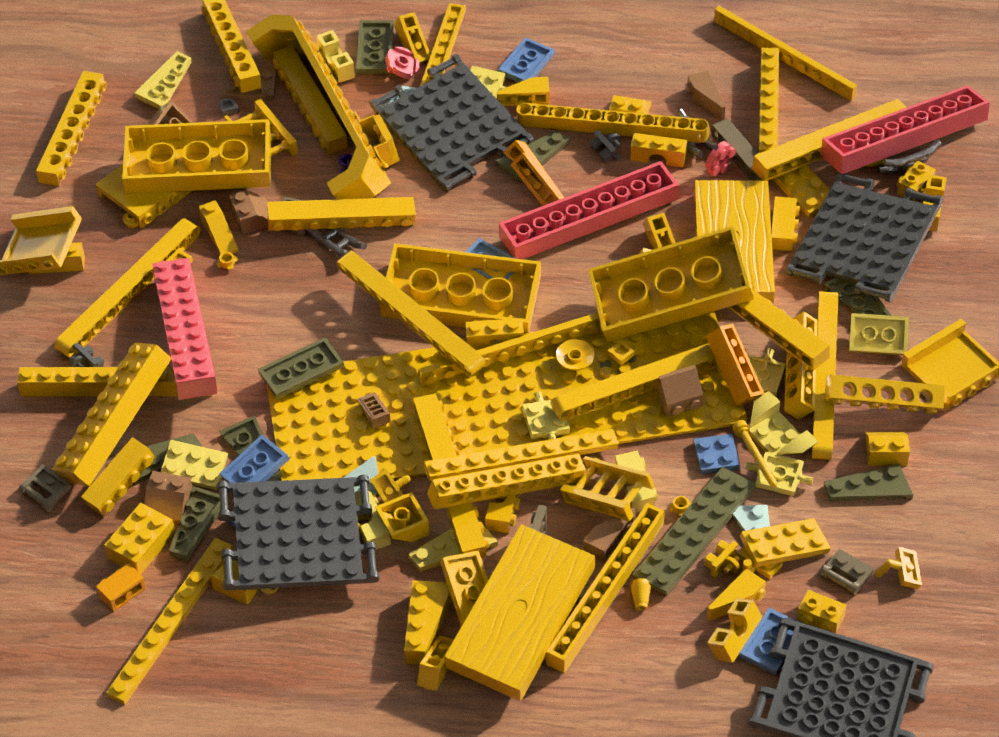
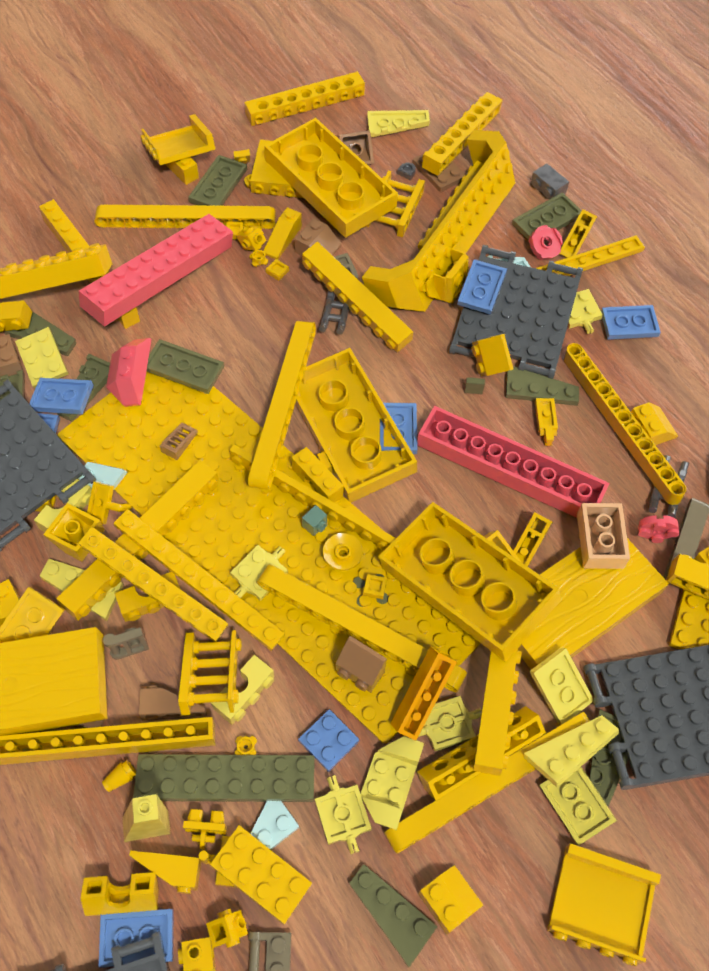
camera: 50 degrees right, 10 degrees up
(84, 357) = (93, 233): dark grey hips -> none
(98, 210) = (242, 156): none -> yellow plate
(110, 243) = (218, 182): none -> olive plate
(203, 251) = (251, 238): none -> yellow brick
(251, 255) = (277, 269): none -> yellow tile
(274, 406) = (129, 371): none -> coral wedge
(338, 62) = (510, 202): light yellow arch -> none
(341, 21) = (549, 181): none -> flat silver brick
(413, 126) = (482, 286): none -> medium blue plate
(484, 159) = (492, 355): none -> yellow slope
(496, 192) = (474, 385): none -> olive tile
(531, 90) = (596, 341): yellow slope -> none
(532, 173) = (515, 399): light orange wedge -> none
(533, 357) = (314, 520): none -> sand green plate
(567, 168) = (546, 419): none -> yellow hinge
(609, 145) = (599, 433): dark grey hips -> none
(671, 149) = (635, 484): yellow arch -> none
(694, 579) = (145, 818): none -> light yellow slope
(703, 188) = (603, 536): none -> light nougat brick
(741, 430) = (369, 745): yellow piece -> none
(784, 223) = (638, 629): yellow brick -> none
(791, 289) = (561, 685): none -> light yellow plate
(811, 570) = (227, 928): none -> yellow brick
(842, 310) = (569, 751): none -> light yellow wing
(933, 393) = (531, 885): yellow brick -> none

